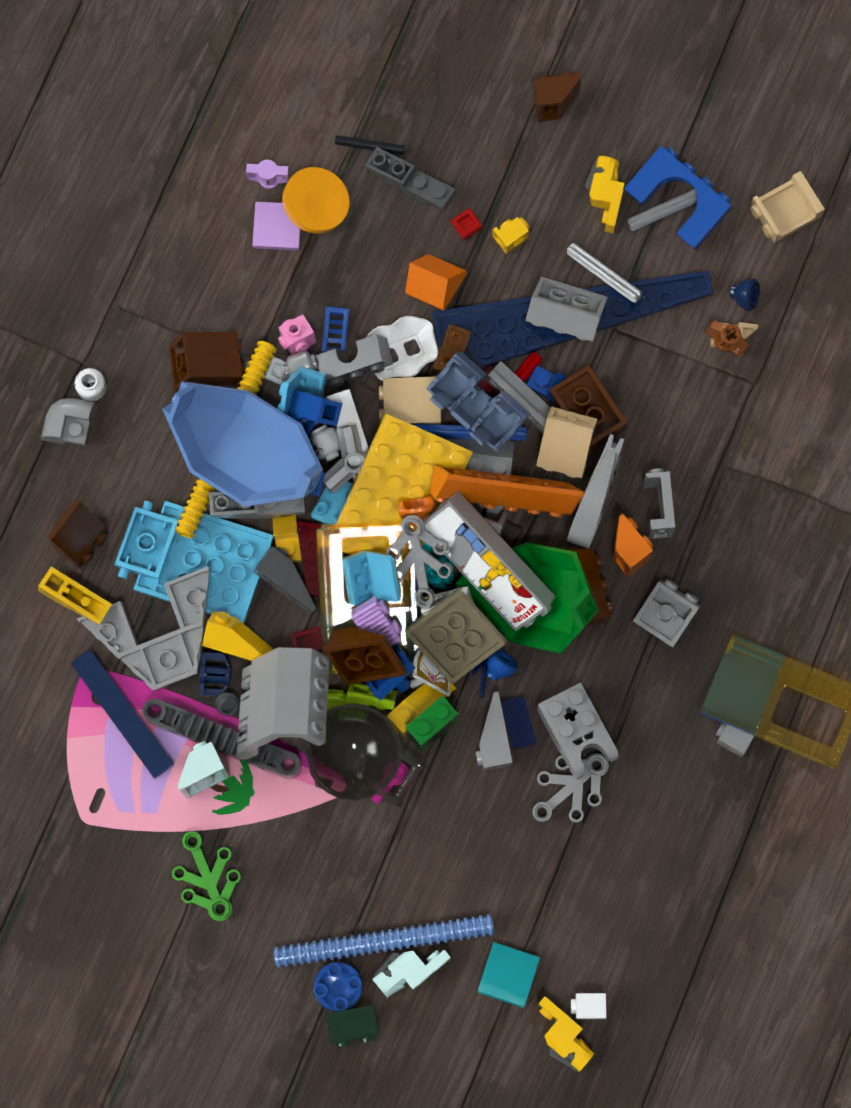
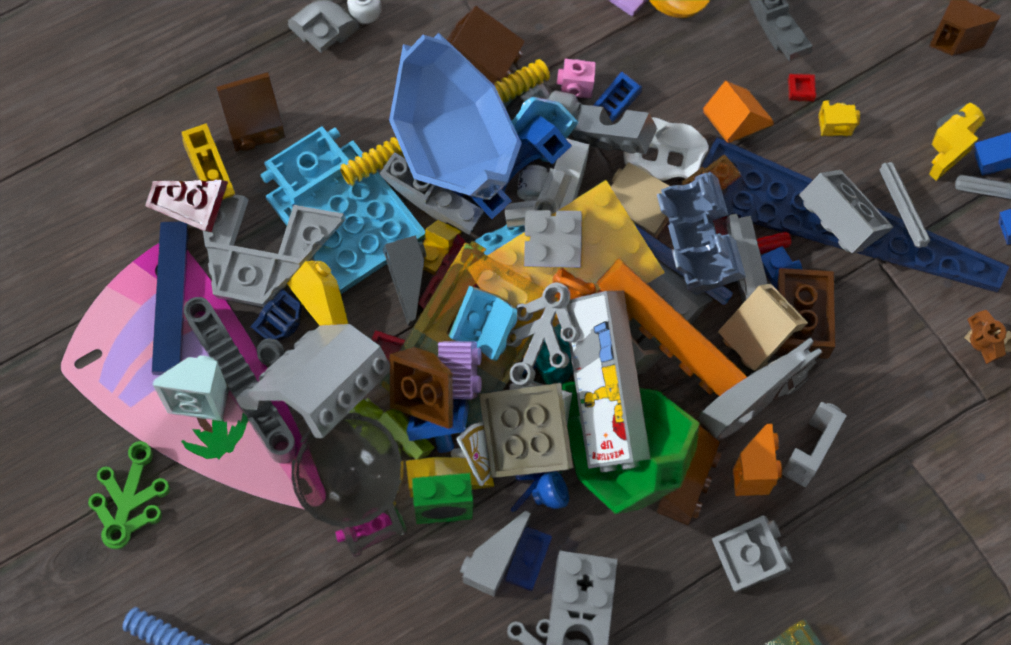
camera: 30 degrees right, 10 degrees down
(82, 634) = (188, 201): none -> wing
(382, 486) = (553, 239): none -> light grey piece

